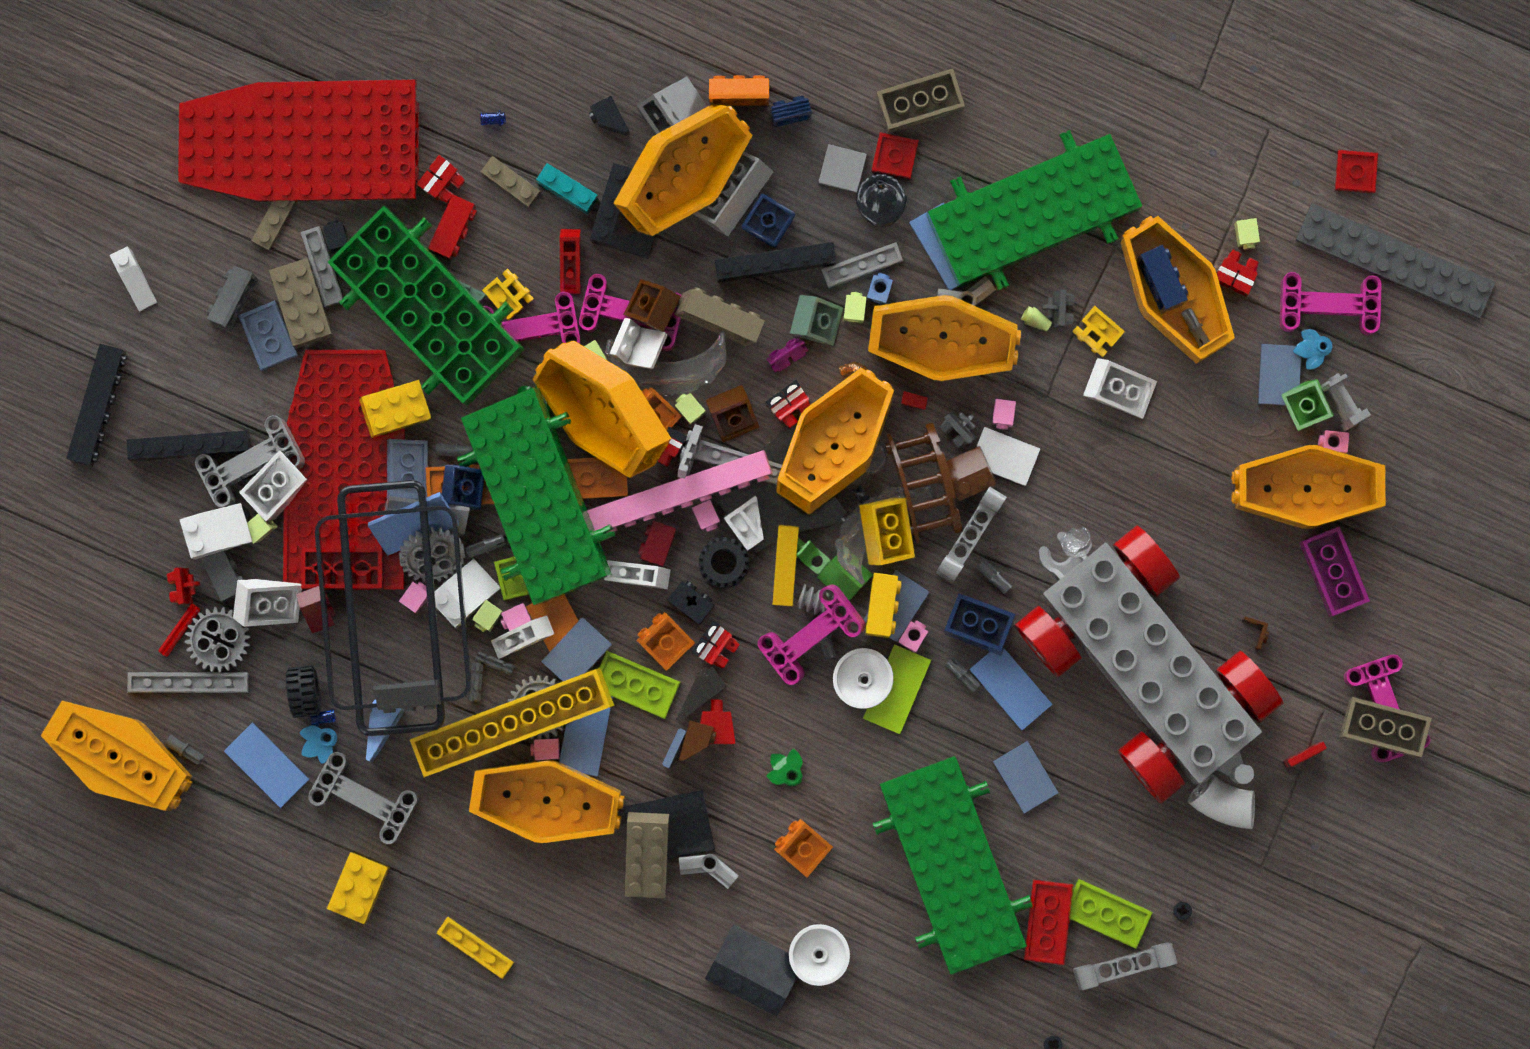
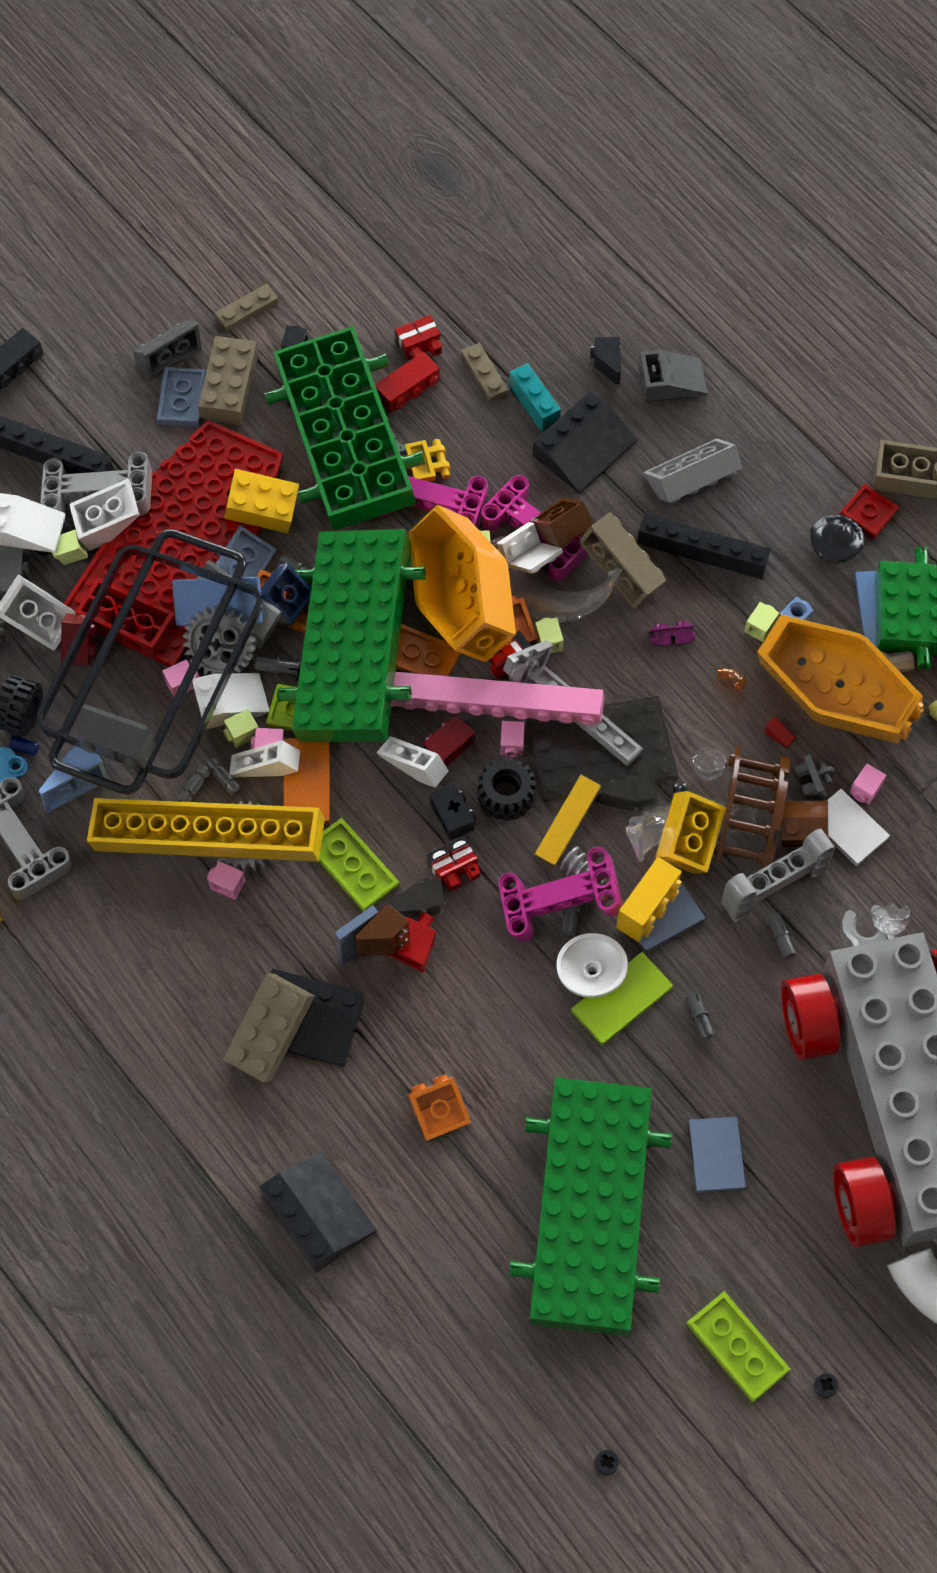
camera: 25 degrees right, 20 degrees down
(133, 278) = (88, 293): white slope -> none
(303, 141) = (314, 255): red wing -> none
(323, 272) = (266, 365): light grey tile -> none
(475, 947) = (39, 1041): yellow tile -> none
(493, 118) = (497, 313): clear blue pin -> none
(541, 822) = (192, 902): light orange container -> none
(570, 260) = (504, 457): red slope -> none
(576, 651) = (320, 792): sand blue tile -> none
(585, 742) = (272, 891): medium blue tile -> none
(664, 640) = (405, 834): orange plate -> none
(701, 172) = (665, 401): light orange container -> none
(720, 872) = (336, 1087): light grey piece -> none
(732, 413) = (589, 660): reddish brown slope -> none
(739, 91) = (743, 390): orange slope -> none
(746, 523) = (549, 761): white wing -> none
(765, 208) = (715, 496): dark blue brick -> none
(782, 409) = (651, 675): hips -> none
(783, 766) = (463, 1018): green plate -> none
(791, 112) = (786, 424): dark blue brick -> none
(807, 552) = (597, 821): bright green bracket -> none
(816, 320) = (718, 614): sand green slope -> none
(819, 970) = (391, 1210): white dish -> none
(833, 422) = (639, 730): light orange container -> none
(836, 575) = (626, 865): bright green slope -> none
(842, 168) = (811, 498): light grey tile -> none
(862, 265) = (788, 589): light grey tile -> none
(909, 644) = (662, 960): bright pink brick -> none
(980, 624) = (743, 970): dark blue brick -> none
(1011, 688) = (745, 1054): medium blue tile -> none
(1049, 922) = (668, 1321): red tile -> none
(1159, 955) = (779, 1415): light grey beam -> none

